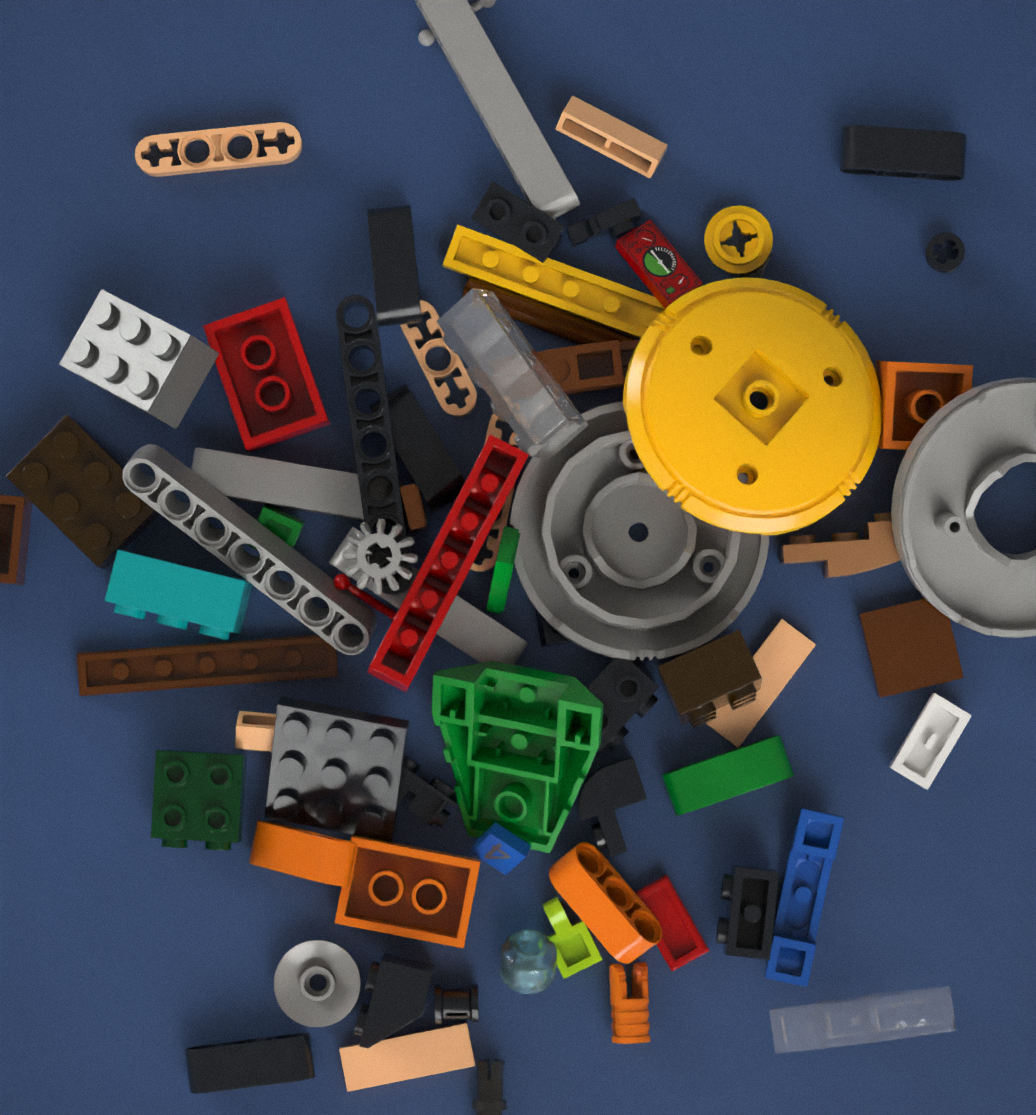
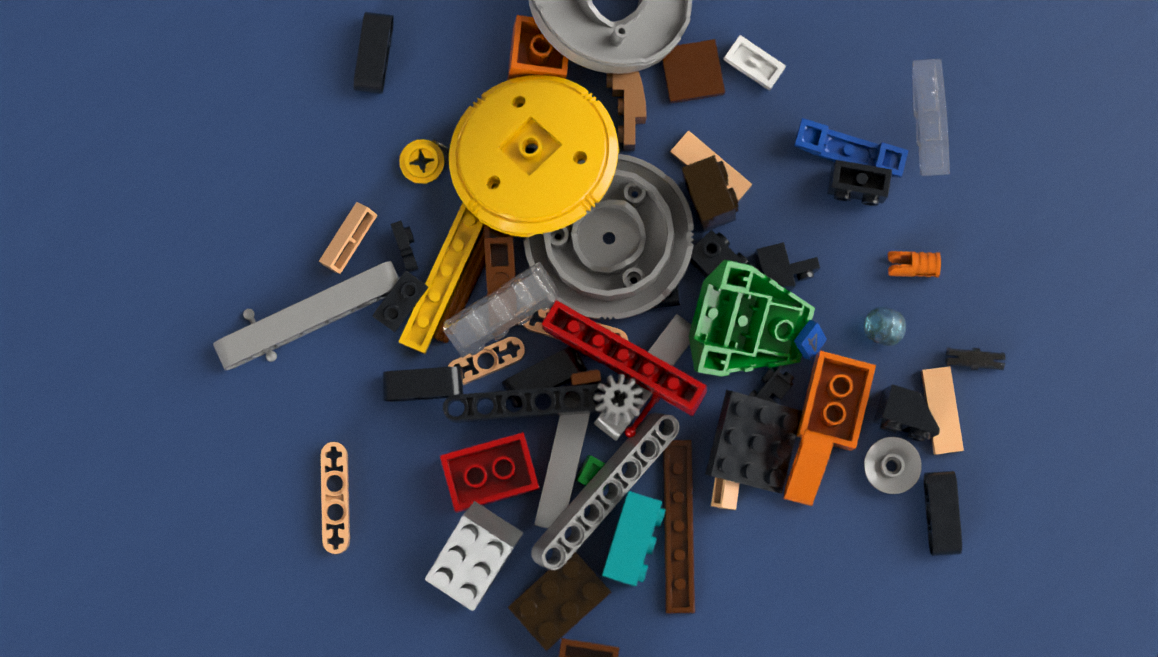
camera: 90 degrees left, 5 degrees down
(198, 798) = (768, 535): dark green brick -> none
(456, 1004) = (910, 374): black bush -> none
(503, 570) = (629, 324): green tile -> none
(573, 941) = (871, 297): lime plate -> none
(605, 902) = (849, 274): orange beam -> none
(657, 263) = (435, 213): red tile -> none
(680, 937) = (862, 236): red tile -> none
(727, 775) = (769, 191): green beam -> none
(939, 241) = (448, 29): black bush -> none

